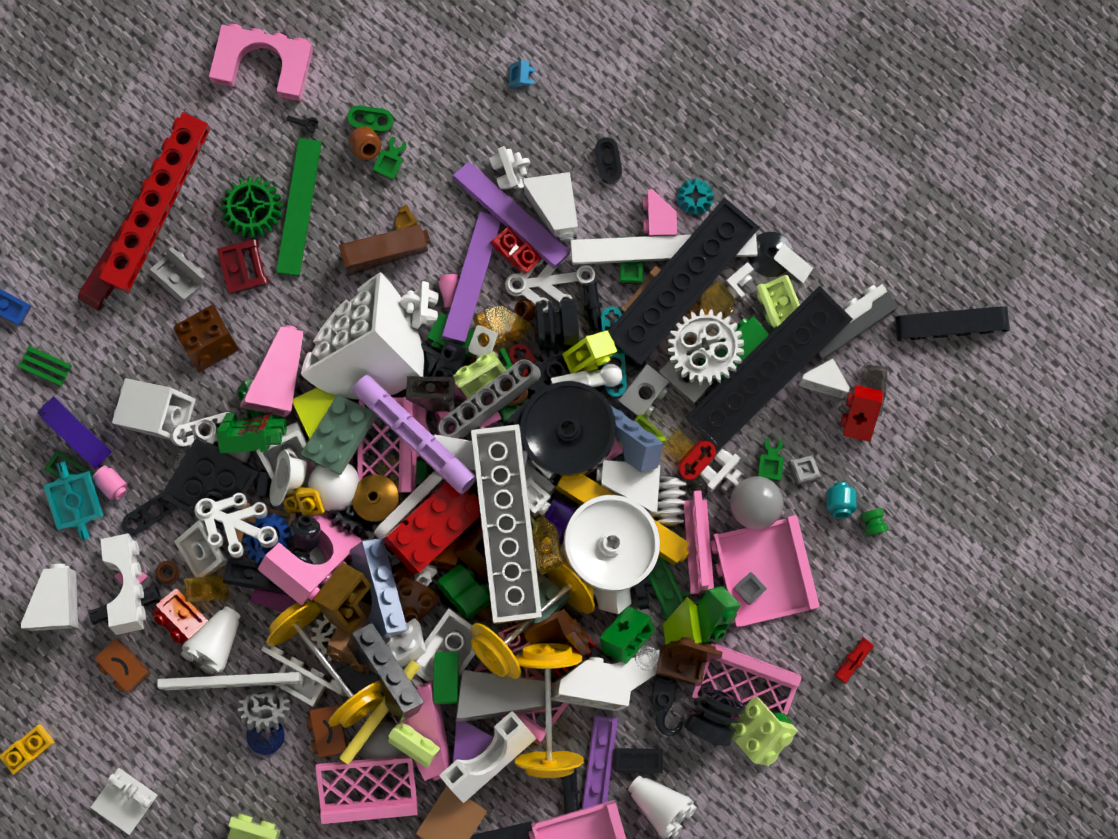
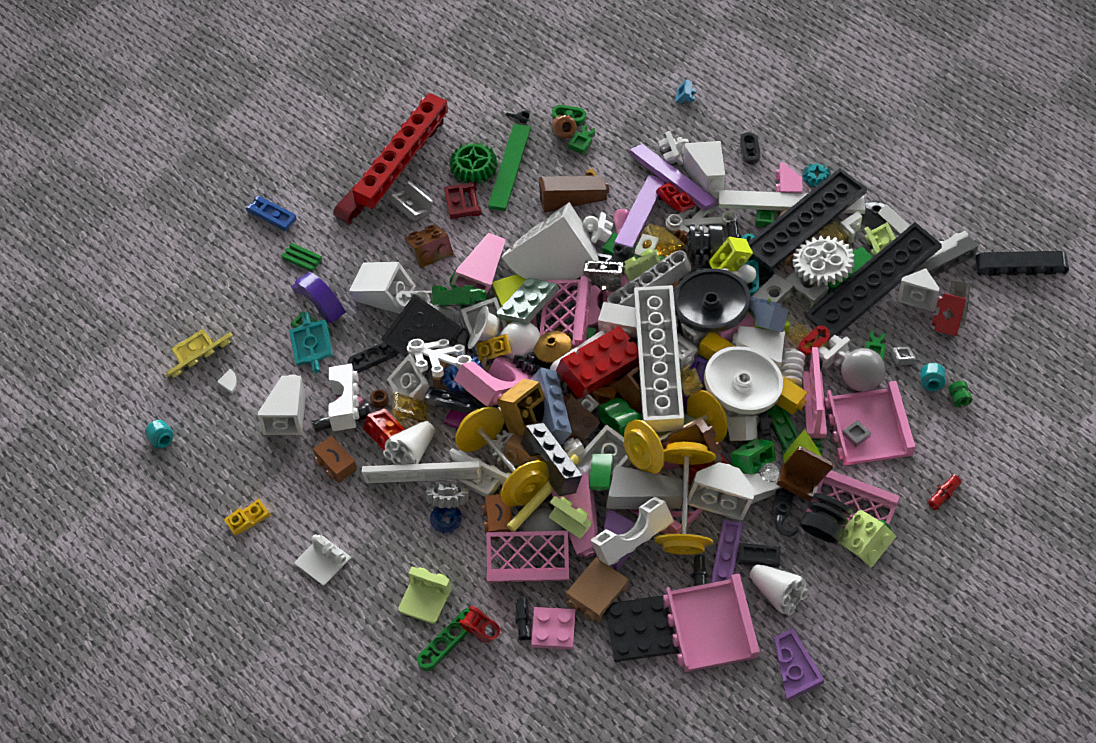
camera: 10 degrees right, 25 degrees down
(110, 483) = (341, 334): bright pink brick -> none
(237, 42) = (473, 64): bright pink arch -> none
(304, 533) = (494, 364): black head -> none
(414, 434) = (596, 301): lavender piece -> none
(716, 613) = (829, 443): green slope -> none

